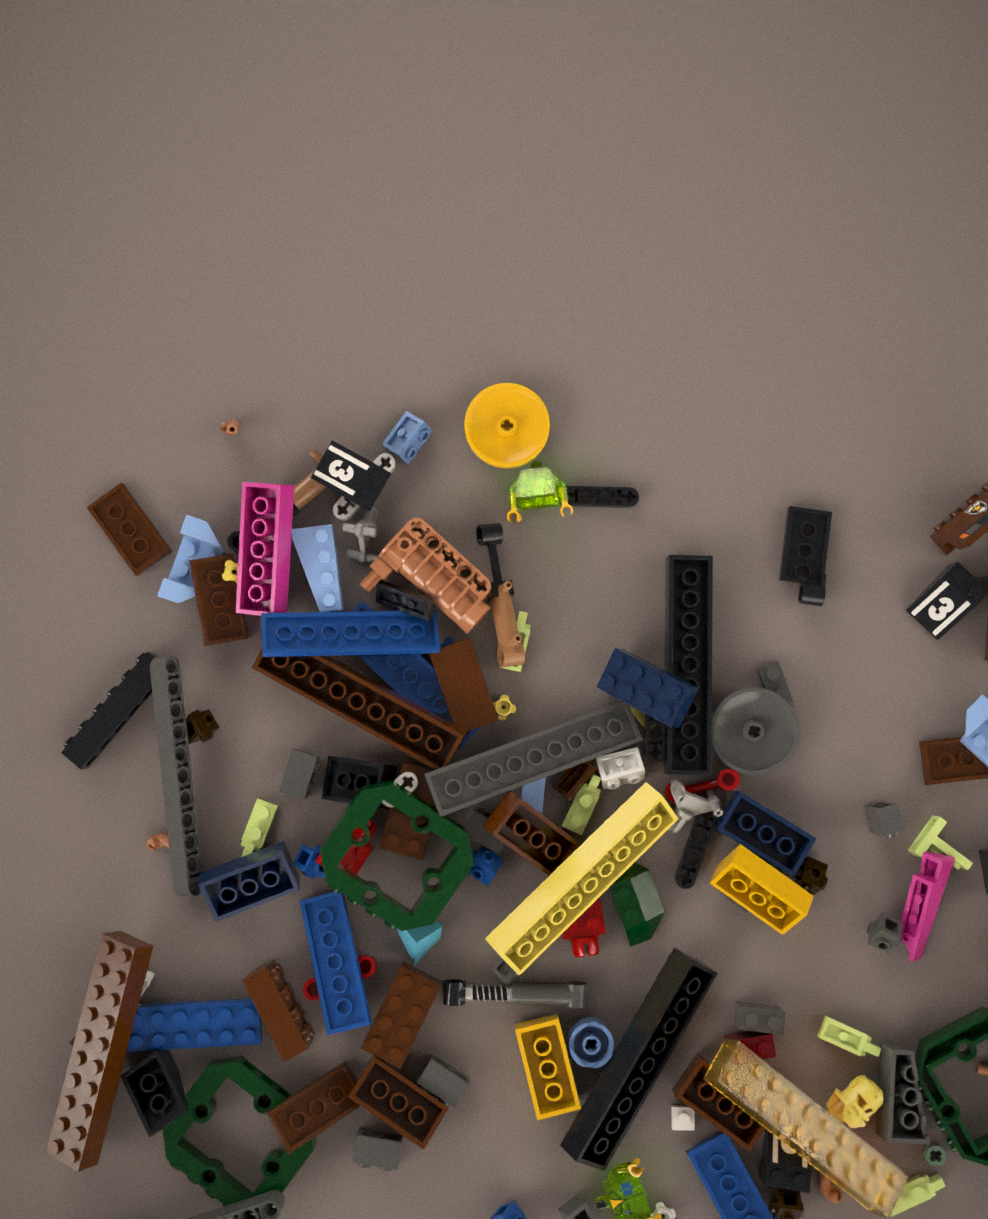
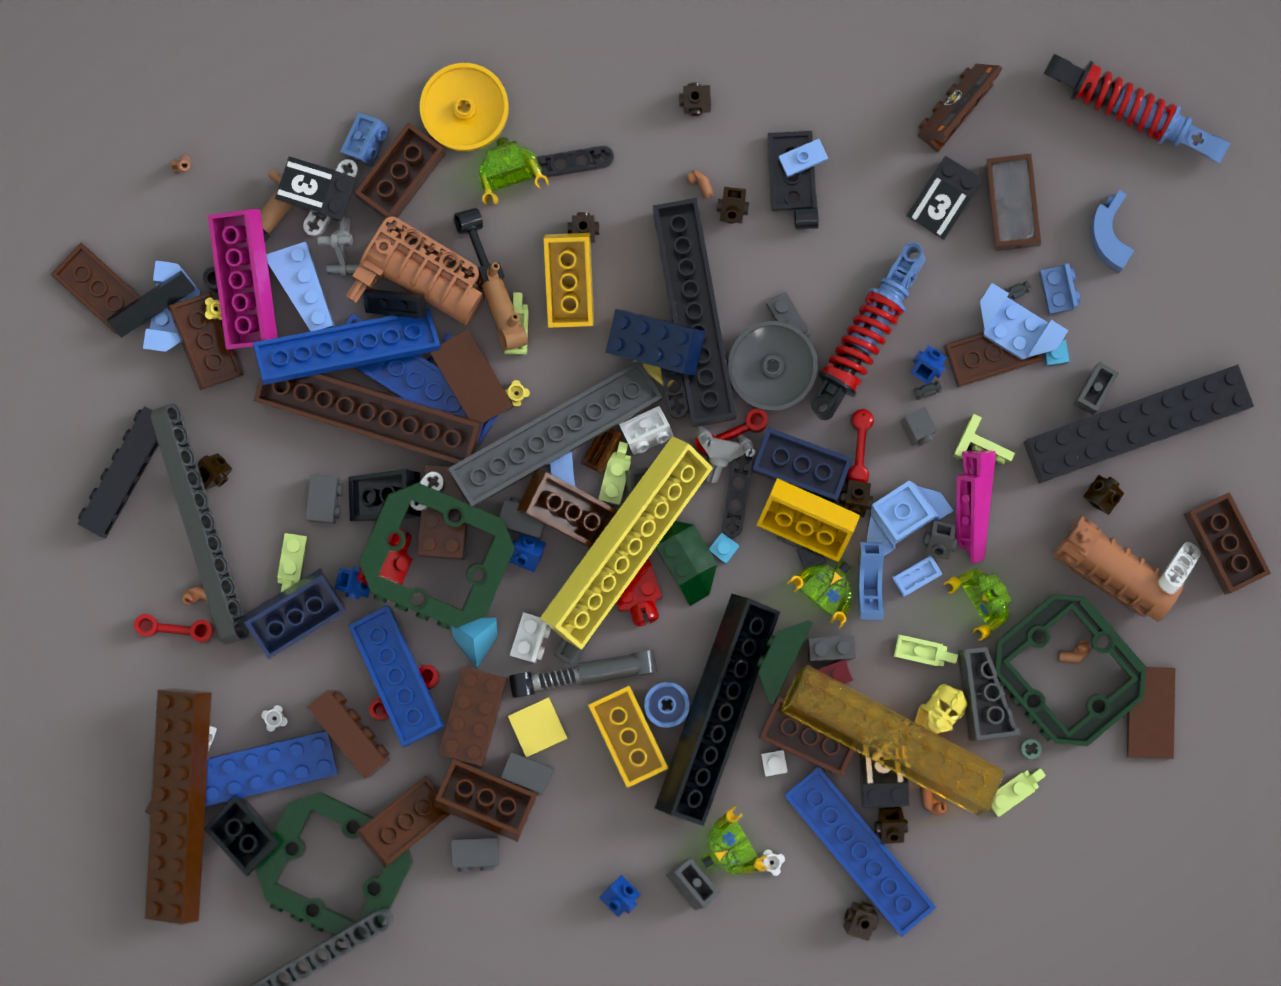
camera: 10 degrees left, 0 degrees up
(109, 862) = (148, 626): none -> red piece
(173, 555) = (151, 304): none -> black tile
(208, 982) = (268, 715): none -> white plate
(434, 475) = (400, 172): none -> reddish brown brick
(461, 1036) = (537, 727): none -> light yellow tile
(470, 948) = (530, 638): none -> white bracket
(575, 610) = (568, 280): none -> yellow brick
(597, 571) = (584, 218): none -> dark brown brick
(602, 812) = (633, 477): none -> dark grey plate
(673, 896) = (723, 548): none -> medium azure plate
(711, 1022) = (781, 657): none -> dark green wedge
(719, 540) = (702, 181): none -> nougat arm
(727, 460) = (701, 94): none -> dark brown brick
(744, 568) = (733, 205): none -> dark brown brick
(753, 924) = (810, 558): none -> black tile
(766, 959) = (827, 589): none -> clear neon green torso
(807, 961) = (870, 581): none -> medium blue arch
(819, 536) = (803, 158): none -> light blue plate
(828, 803) = (861, 424): none -> red piece
(851, 901) = (904, 513): none -> light blue piece
(854, 962) = (917, 576): none -> light blue plate
(867, 697) = (882, 308): none -> piece
(897, 782) = (928, 390): none -> dark grey piece
(903, 759) = (928, 365): none -> blue brick
(921, 998) = (987, 595): none -> clear neon green torso

